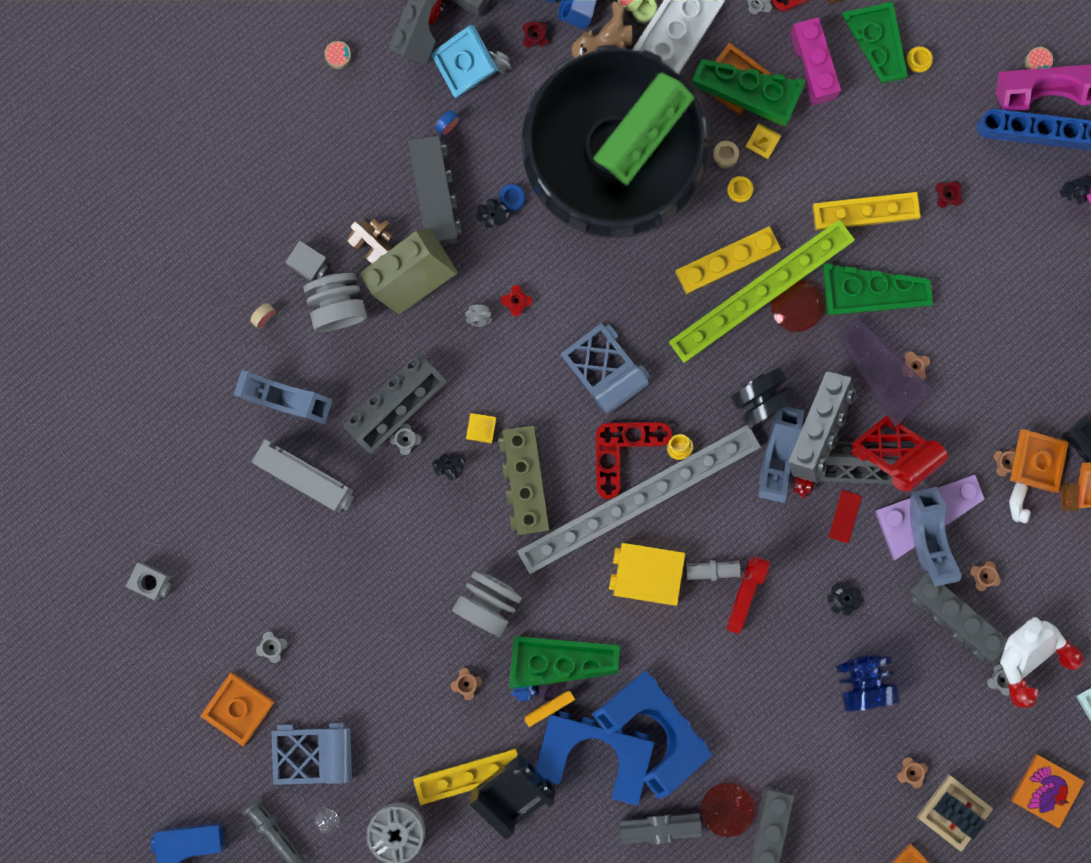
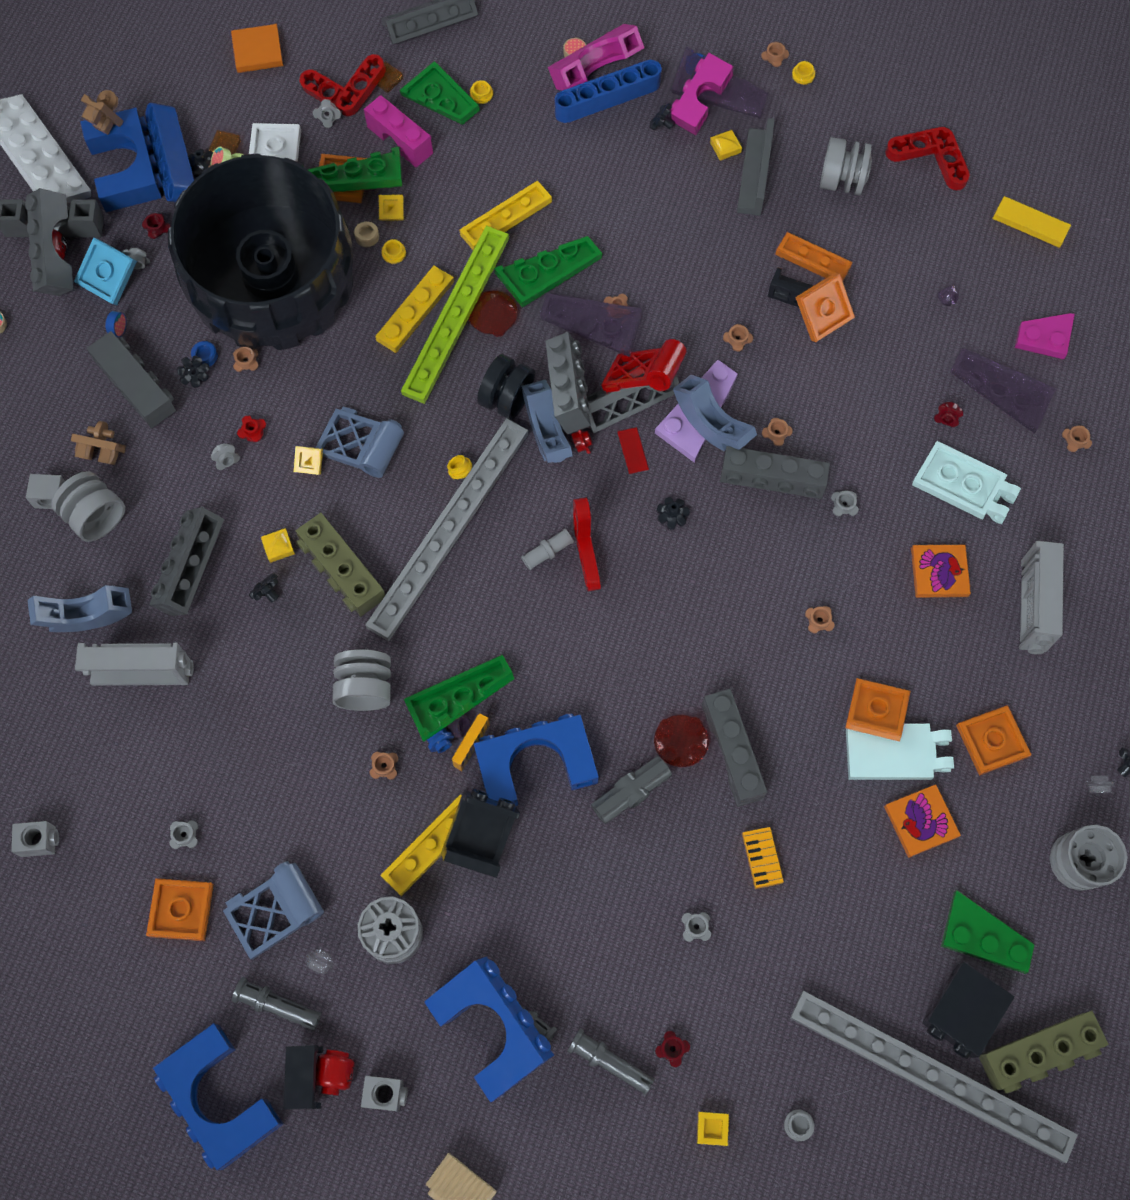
camera: 30 degrees left, 15 degrees down
(263, 316) = (29, 555): tan tile -> none
(405, 431) = (213, 582): light grey plate -> none
(409, 271) = (141, 447): olive slope -> none
(543, 218) = (245, 353): none -> nougat plate
(550, 361) = (308, 460): none -> yellow tile
(613, 449) = (403, 500): red beam -> none
(644, 127) = (275, 207): bright green panel -> none
(647, 574) = (492, 582): yellow brick -> none
(684, 748) = (552, 684): blue arch -> none
(867, 683) = (730, 557): clear blue wheel -> none
(954, 189) = (567, 167): dark red plate -> none
(955, 813) = (876, 631): tan plate -> none
(1016, 504) = (764, 362): white arm -> none
(1029, 649) = (849, 460): white torso -> none
(1039, 461) = (762, 321): orange tile -> none
(1069, 497) = (804, 335): clear orange tile -> none

